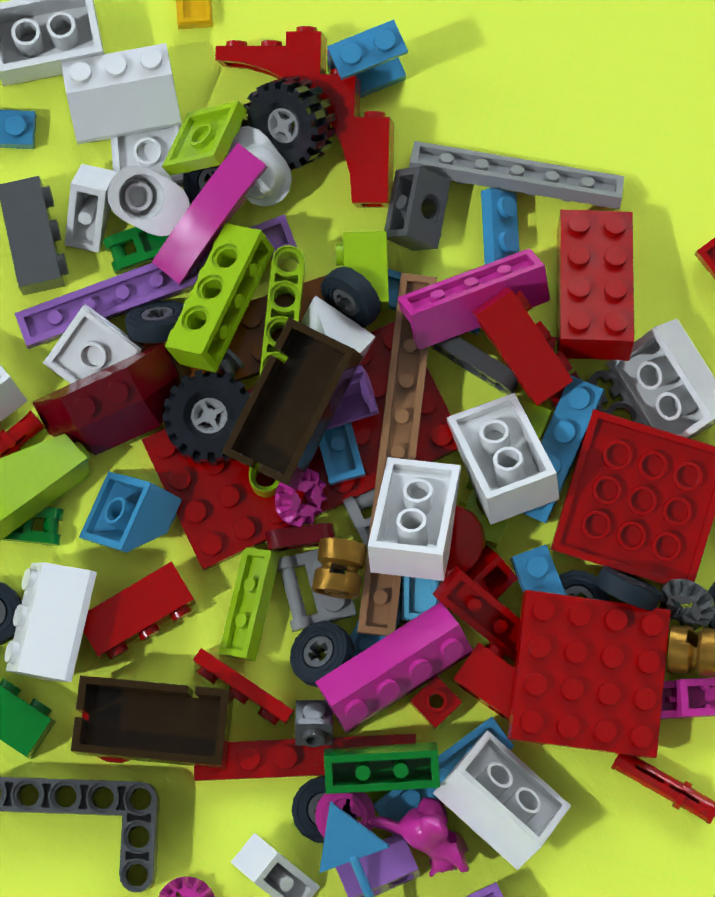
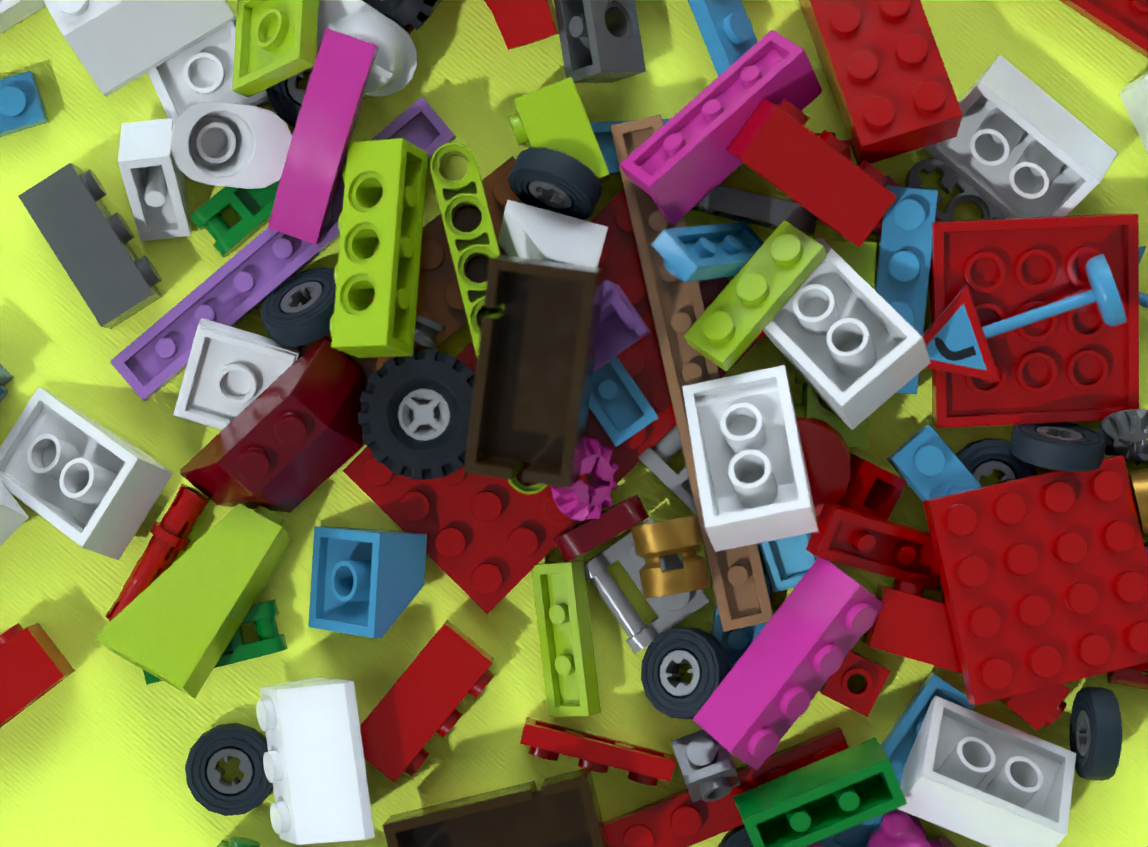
camera: 20 degrees left, 10 degrees up
(439, 375) = (707, 250): none -> dark azure plate
(457, 414) = (755, 295): none -> lime plate
(555, 760) = (1038, 706): none -> red plate
(584, 493) = (959, 342): none -> dark azure piece
(588, 794) = (1096, 733): none -> black bush

